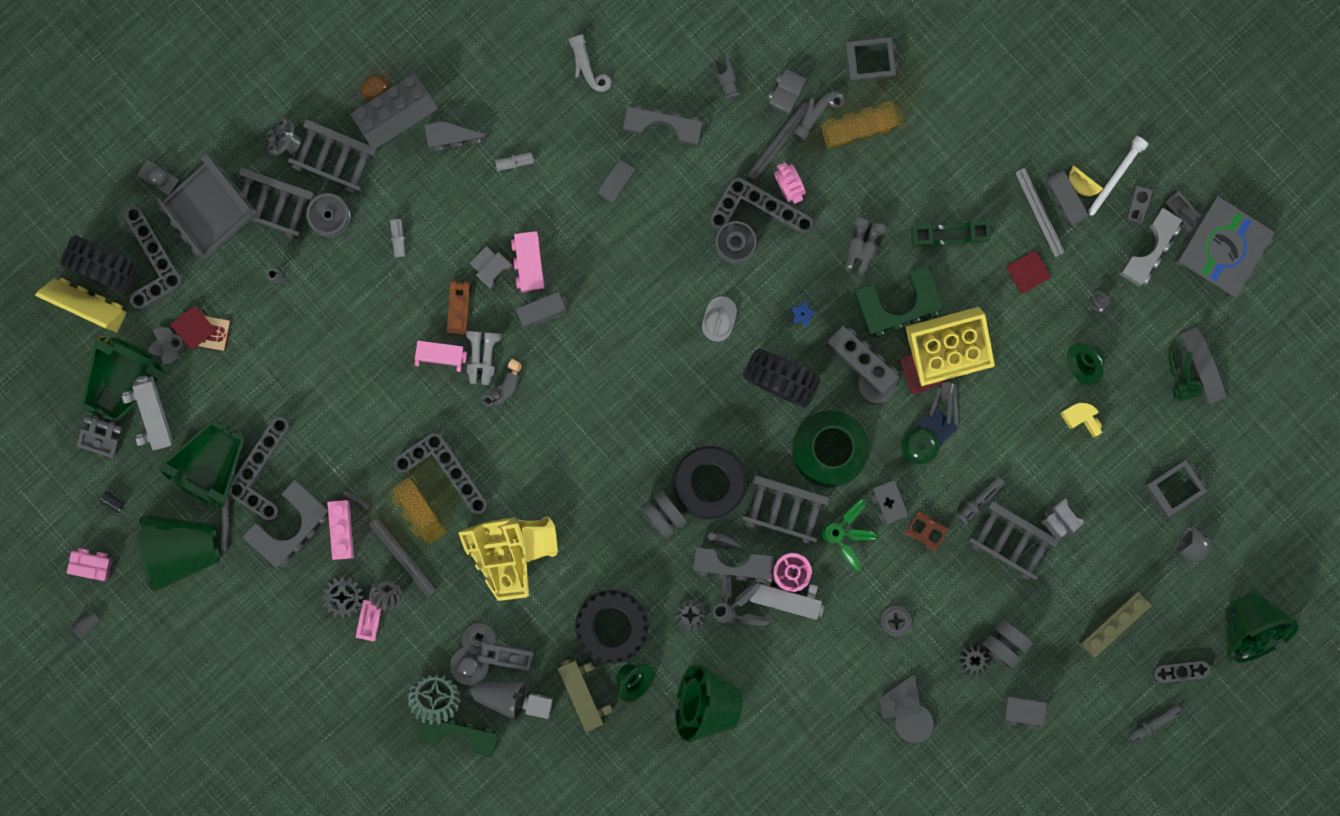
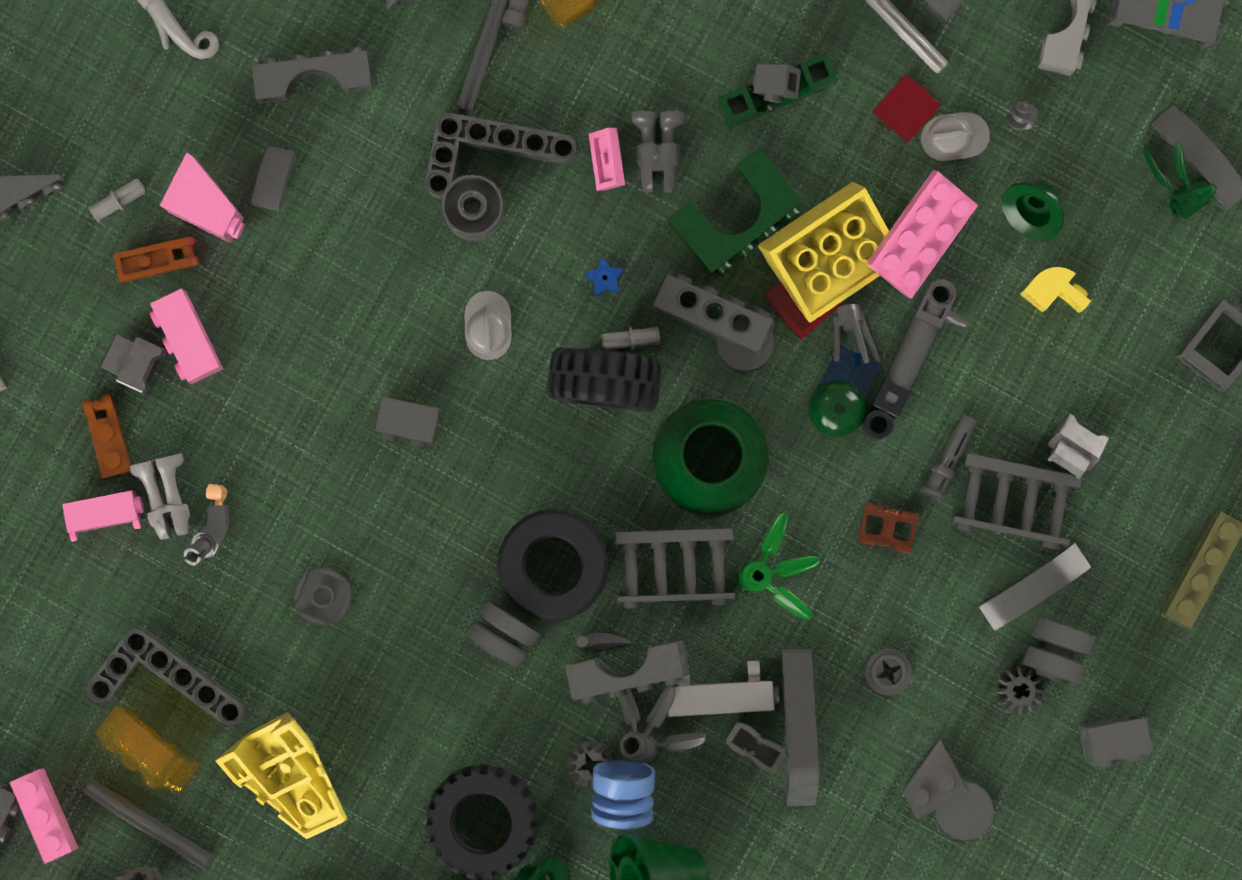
camera: 20 degrees left, 0 degrees up
(357, 500) = (52, 763): dark grey piece -> none
(525, 207) = (155, 260): none -> dark orange plate
(539, 538) = (332, 730): light yellow piece -> none
(542, 310) = (227, 399): dark grey window -> none
(559, 453) = (323, 596): none -> dark grey tile
(567, 182) = (201, 202): none -> bright pink slope
(649, 362) = (407, 421): none -> dark grey brick
(705, 639) = (623, 794): none -> medium blue wheel
(789, 183) = (522, 95): bright pink gear -> none
(792, 572) = (715, 654): bright pink cylinder -> none
(793, 633) = (762, 751): none -> dark grey brick
(806, 358) = (631, 338): none -> light grey axle
(829, 240) = (606, 159): none -> bright pink plate
(829, 636) = (800, 728): none -> dark grey beam
(890, 491) = (818, 489): dark grey brick -> none
(952, 228) = (776, 82): none -> dark grey brick
(961, 445) = (913, 350): none -> dark grey piece
(1006, 599) = (1035, 587): none -> dark grey slope
(1011, 354) = (922, 234): none -> bright pink plate
(1053, 300) = (955, 136): none -> light grey piece

